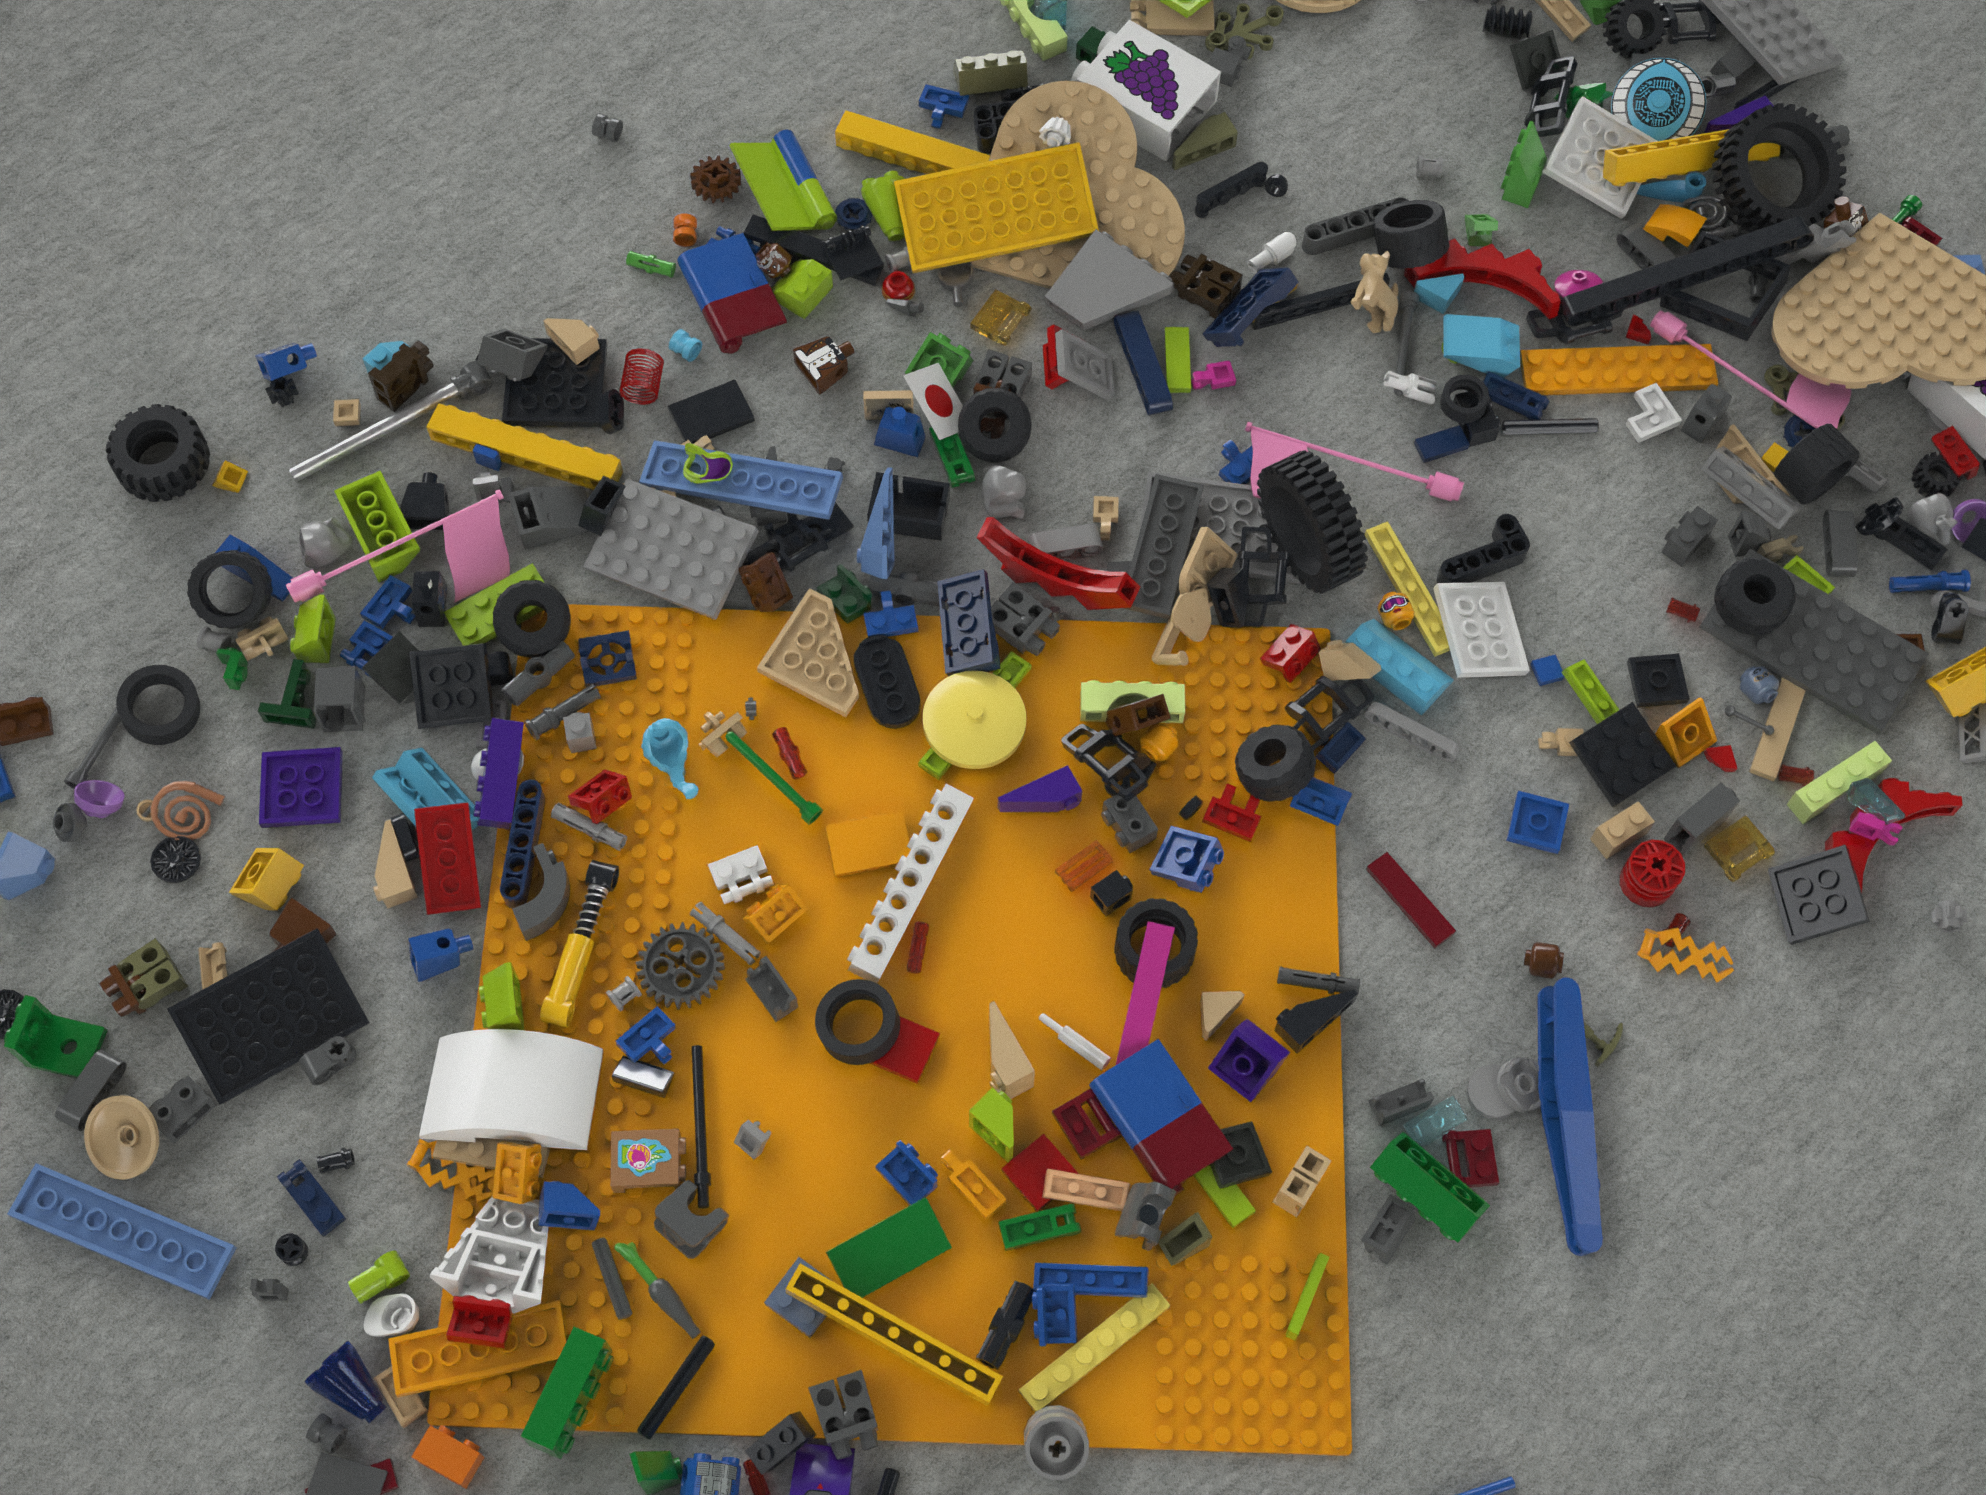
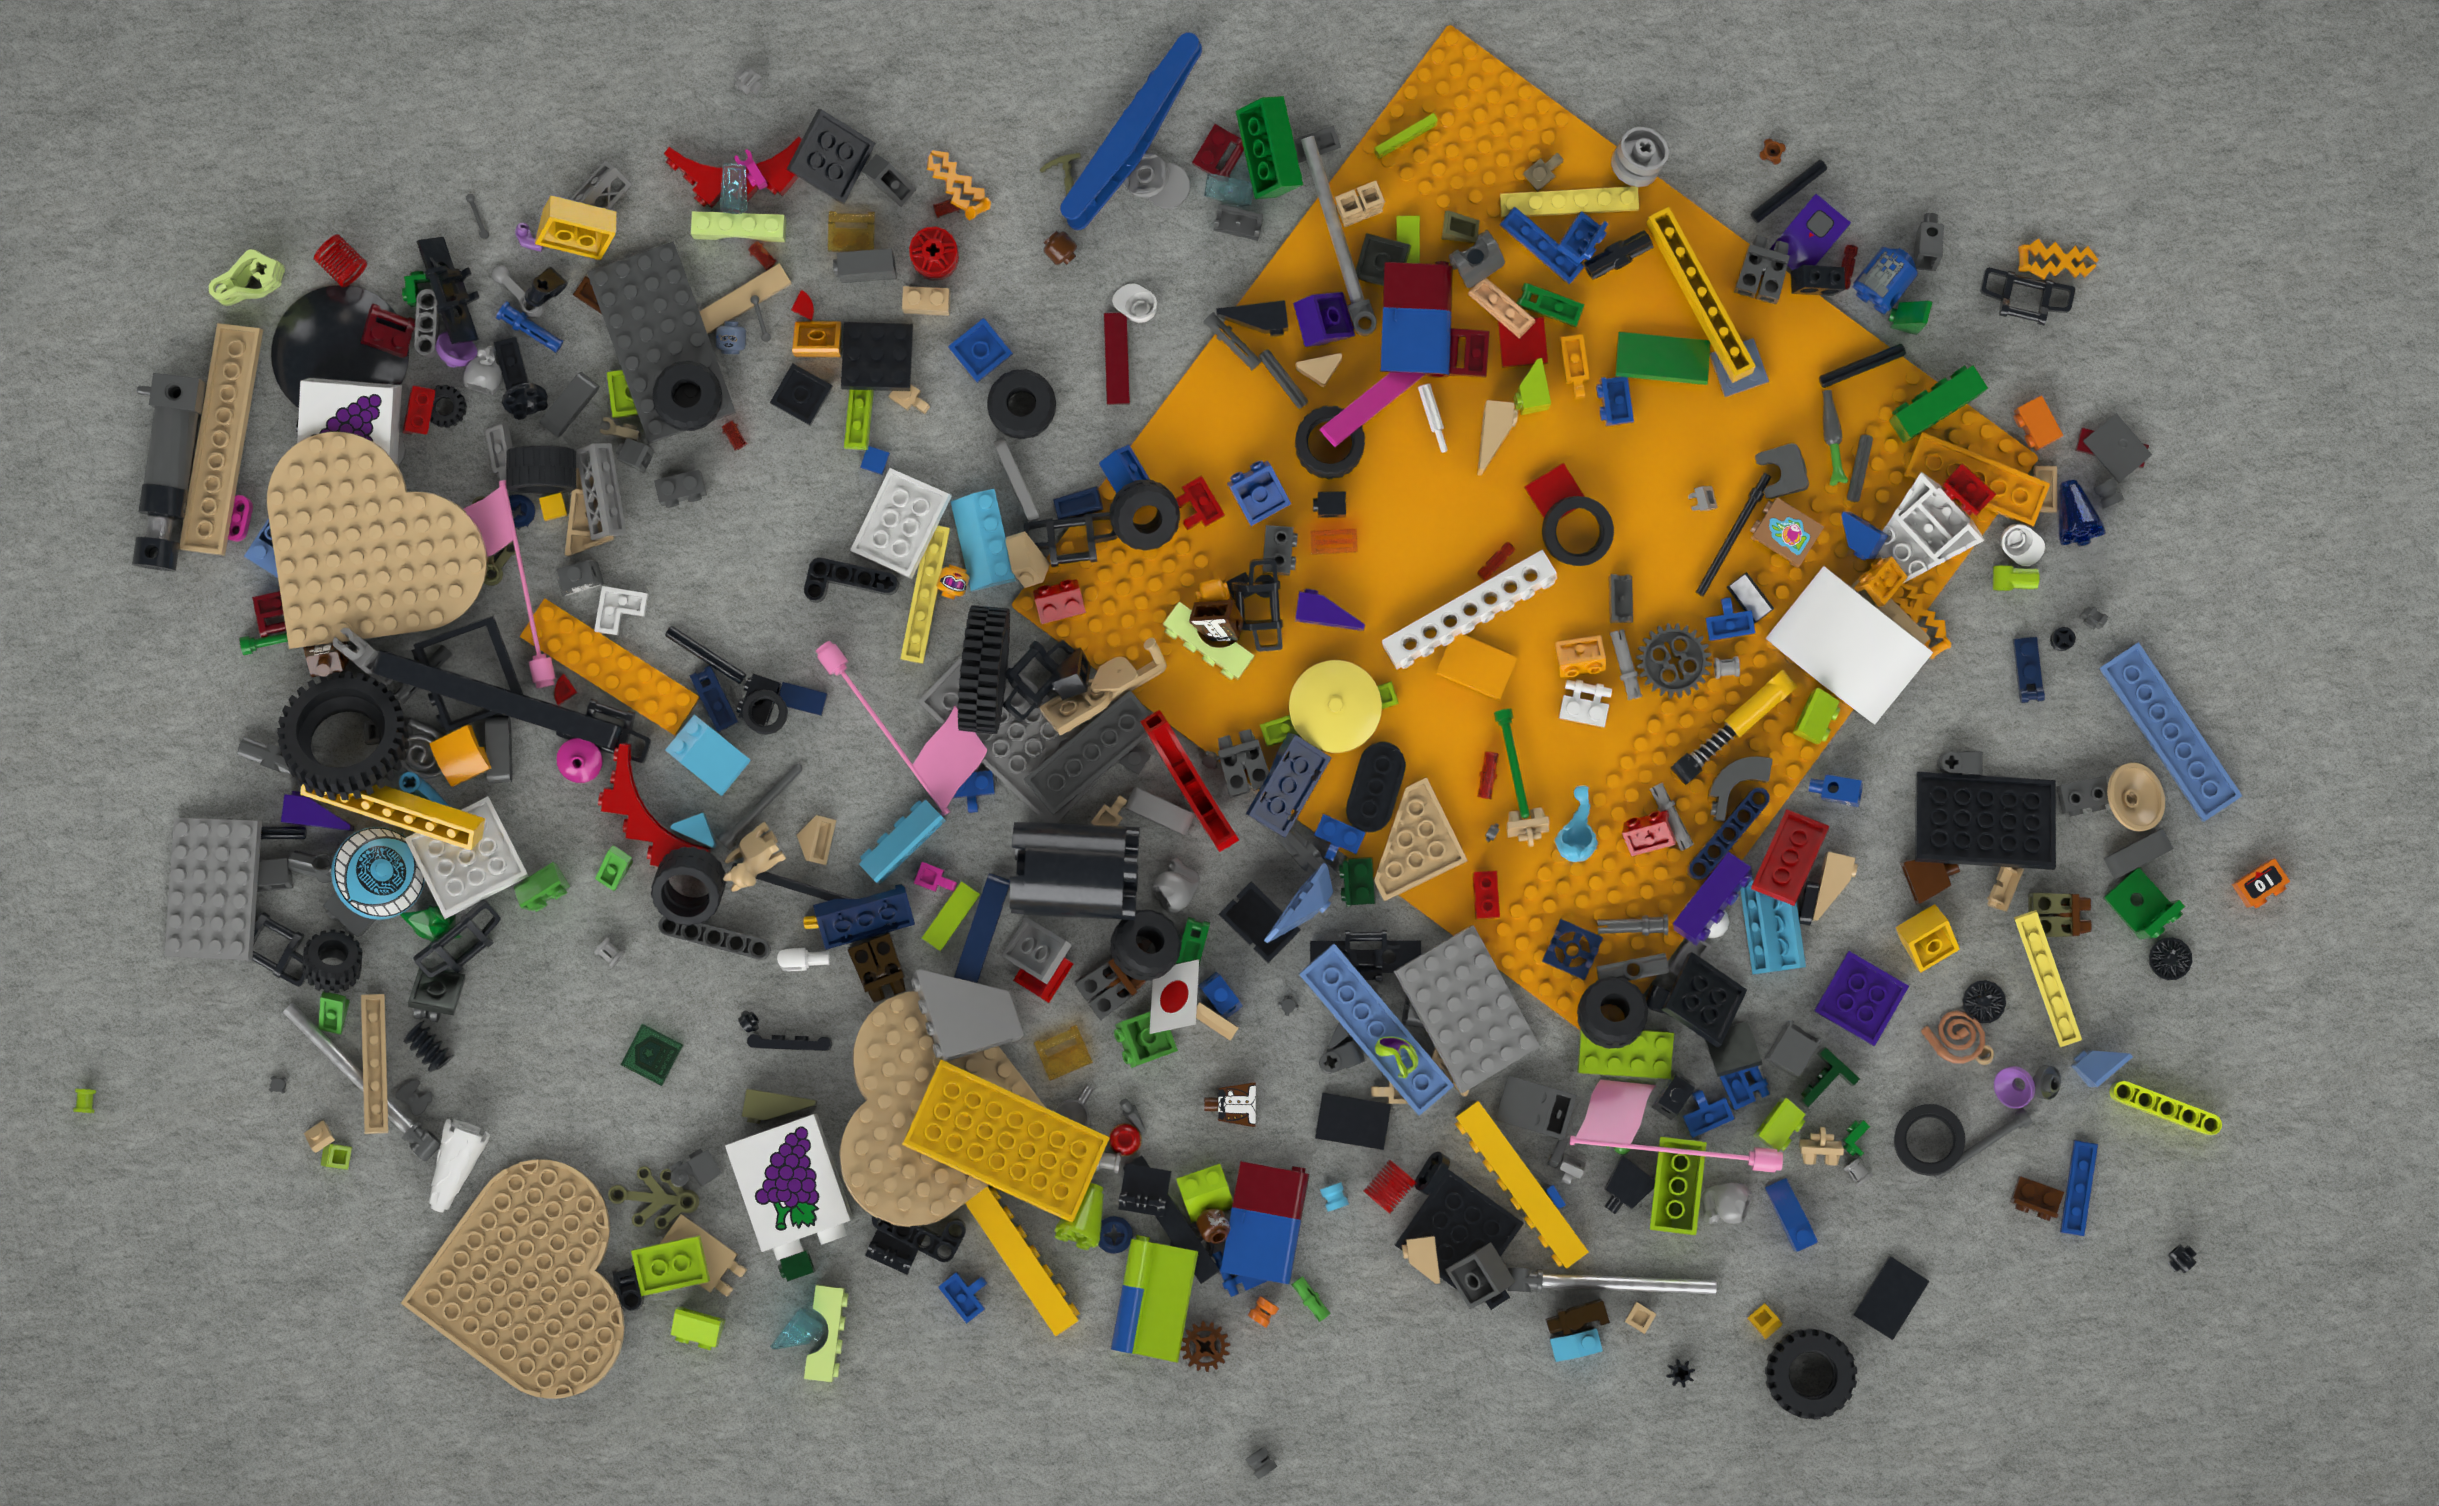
camera: 145 degrees left, 20 degrees up
(119, 910) = (2048, 978): none -> light yellow plate
(120, 561) = (1891, 1298): none -> black tile
(198, 589) = (1835, 1176): black tyre -> none
(275, 364) = (1664, 1396): blue torso -> none
(335, 1161) = (1997, 684): black pin -> none
(579, 732) = (1632, 896): light grey brick -> none
(600, 505) = (1496, 1083): black brick -> none
(719, 649) = (1486, 895): none -> red brick
(758, 443) = (1345, 1056): none -> dark grey piece
(765, 583) = (1413, 928): reddish brown bracket -> none
(991, 72) = (905, 1295): olive slope -> none
(1056, 132) = (916, 1164): white piece -> none
(1102, 432) = (1075, 870): none -> black brick
(1144, 1358) = (1541, 173): none -> dark tan plate
(1191, 808) = (1226, 529): black tile -> none
(1224, 1093) = (1359, 306): none -> flat silver piece
(1244, 980) = (1283, 379): none -> dark grey axle
(1266, 380) = (901, 842): none -> medium azure slope
(1332, 122) = (652, 1054): none -> clear green tile
(1335, 346) = (816, 839): none -> tan slope
(1412, 386) = (789, 761): white arm -> none
(1435, 957) = (1135, 302): none -> white cap
(1457, 817) = (1016, 382): none -> black tyre
(1748, 915) = (888, 180): none -> dark grey slope

